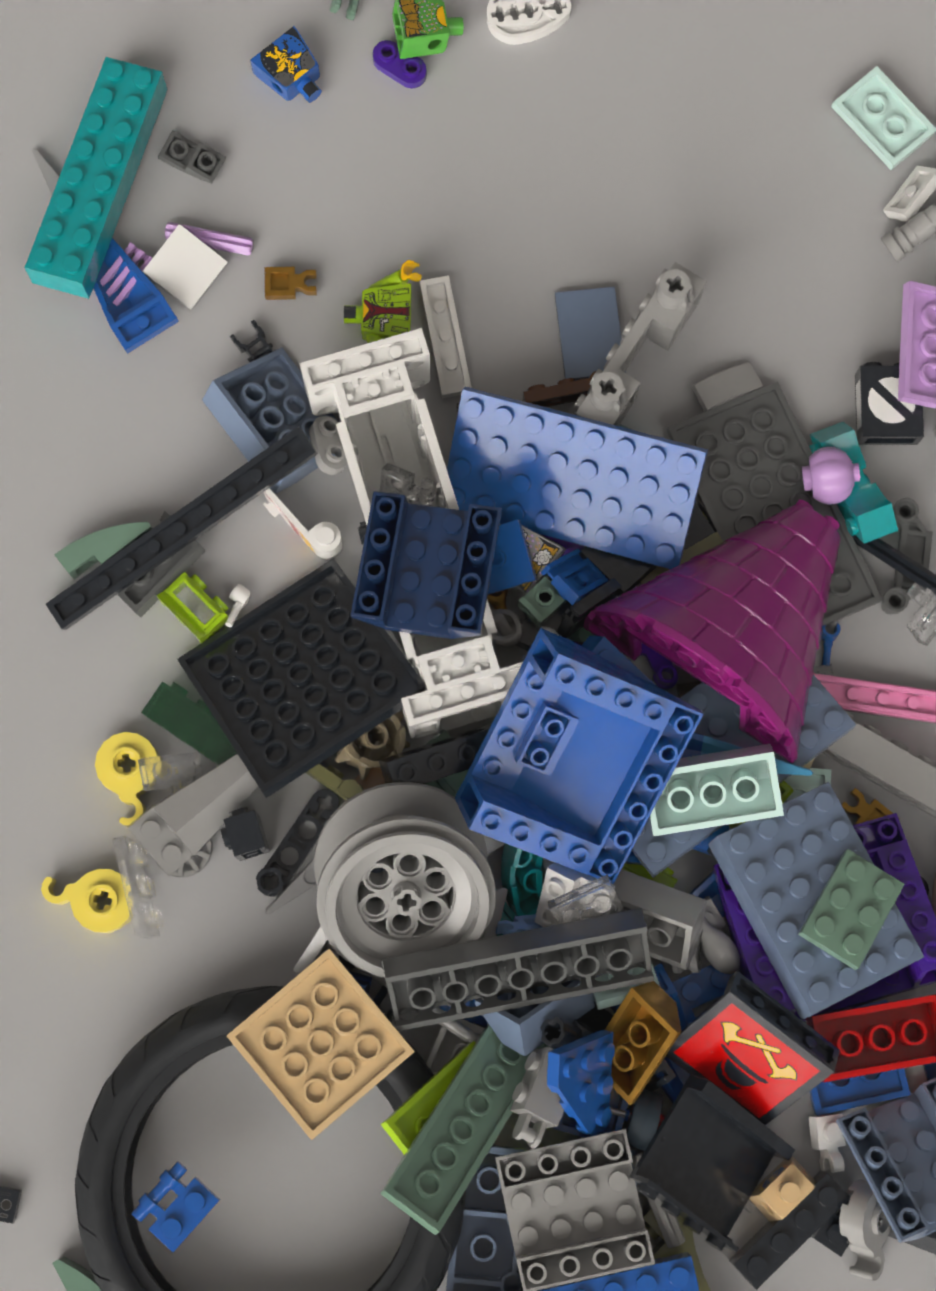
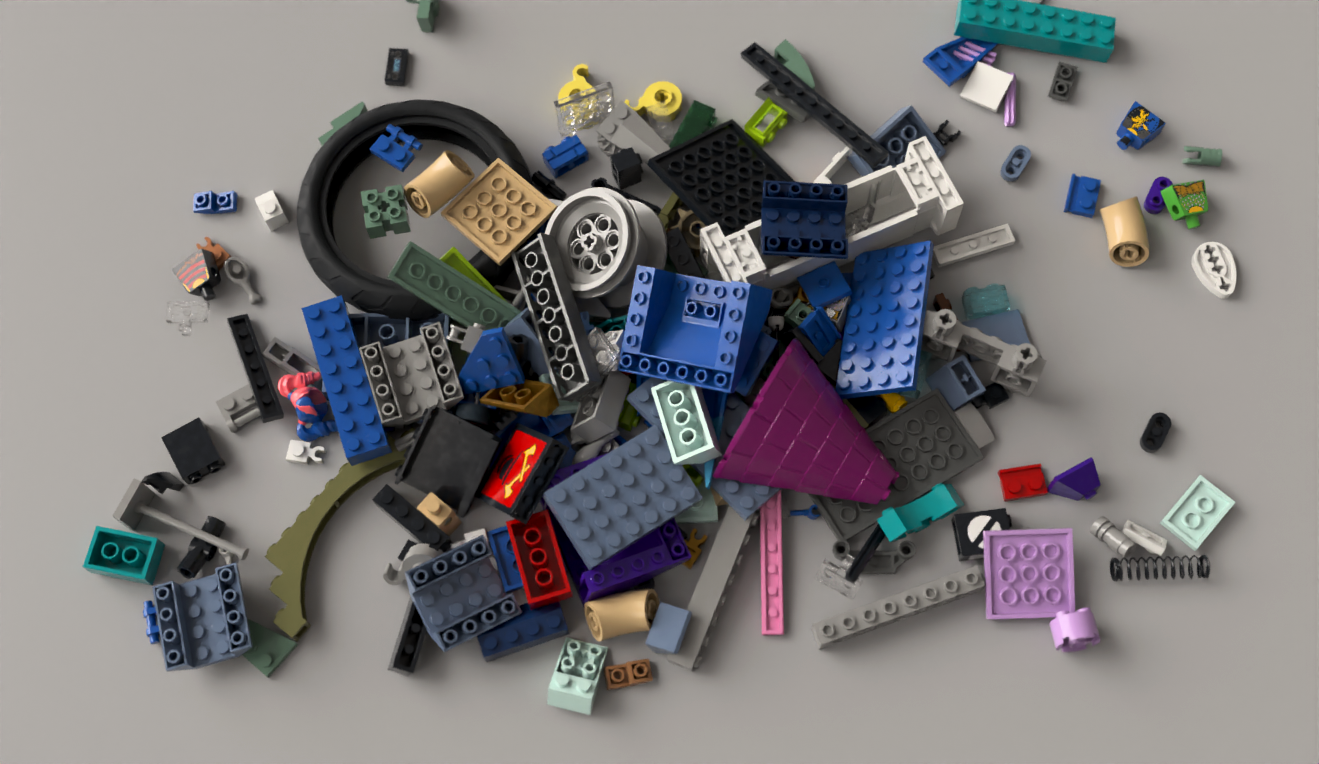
camera: 90 degrees right, 10 degrees down
(202, 932) = (565, 156): none -> blue brick
(240, 596) = (776, 150): white hand -> none
(251, 963) = (548, 186): none -> black axle
(263, 1136) = (438, 184): none -> tan brick
(282, 1248) = (385, 211): none -> sand green brick
(283, 283) = (989, 146): pearl gold plate -> none
(320, 252) = (1014, 164): none -> sand blue plate
(384, 168) = (1082, 196): none -> blue plate
(385, 305) = (983, 207): torso -> none
(457, 118) = (1126, 233): none -> tan brick
(539, 335) = (985, 301): none -> clear light blue brick
(667, 397) = (956, 383): none -> sand blue slope
(683, 356) = (992, 397): none -> black plate
(766, 145) = (1155, 434): none -> black plate
(814, 337) = (1022, 482): none -> red plate
(827, 262) = (1077, 482): none -> dark purple slope
(830, 475) = (921, 492): lavender plant -> none
(851, 909) = (616, 512): sand green plate -> none

